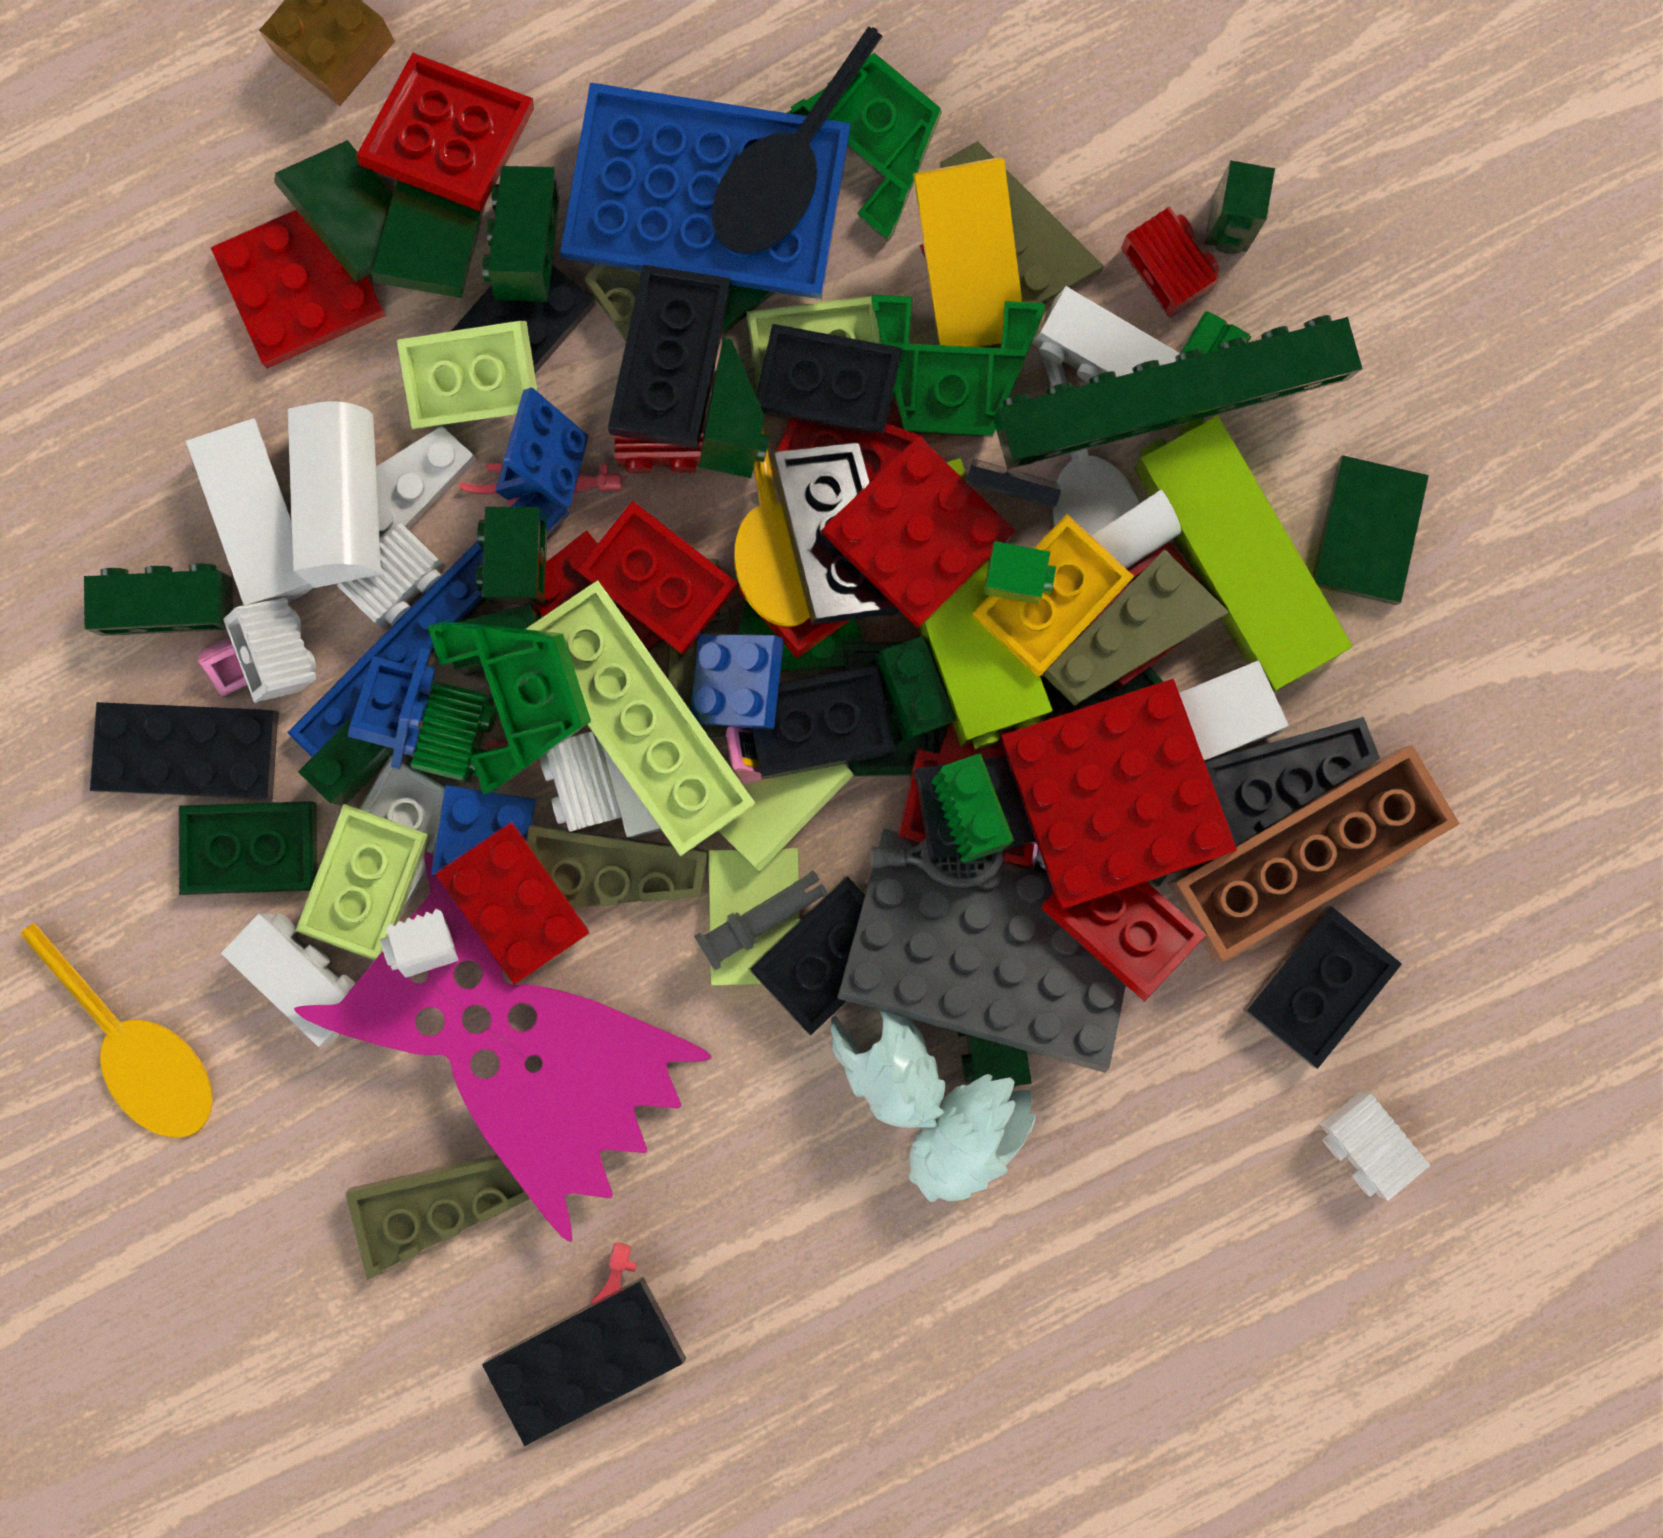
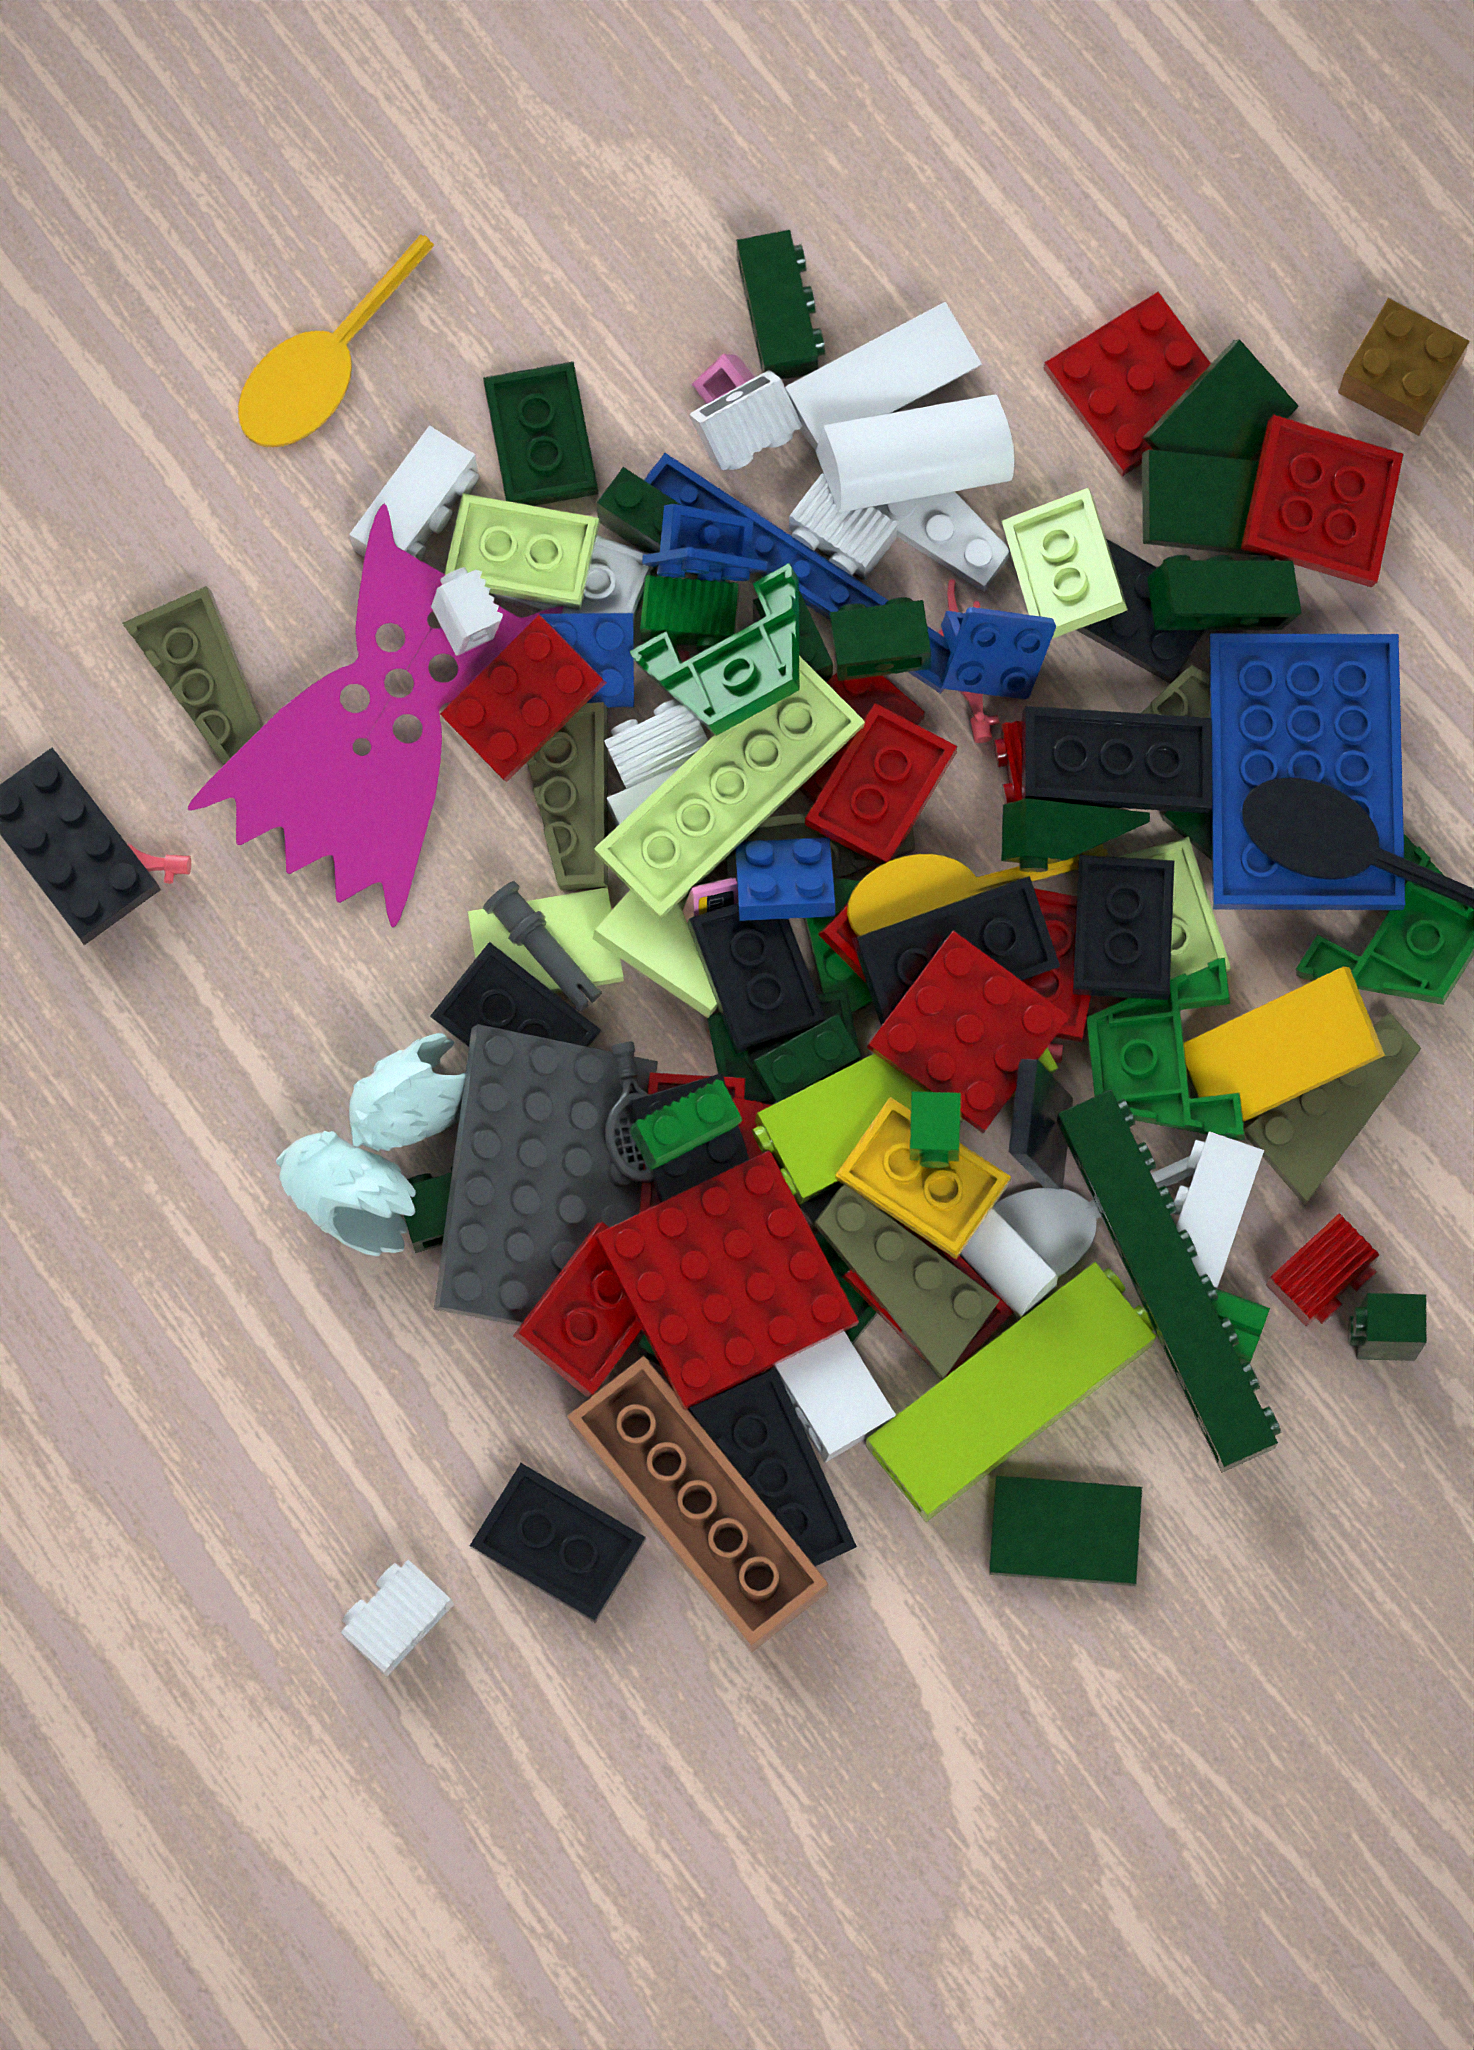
camera: 80 degrees right, 10 degrees down
(184, 750) = (630, 358): black plate -> none

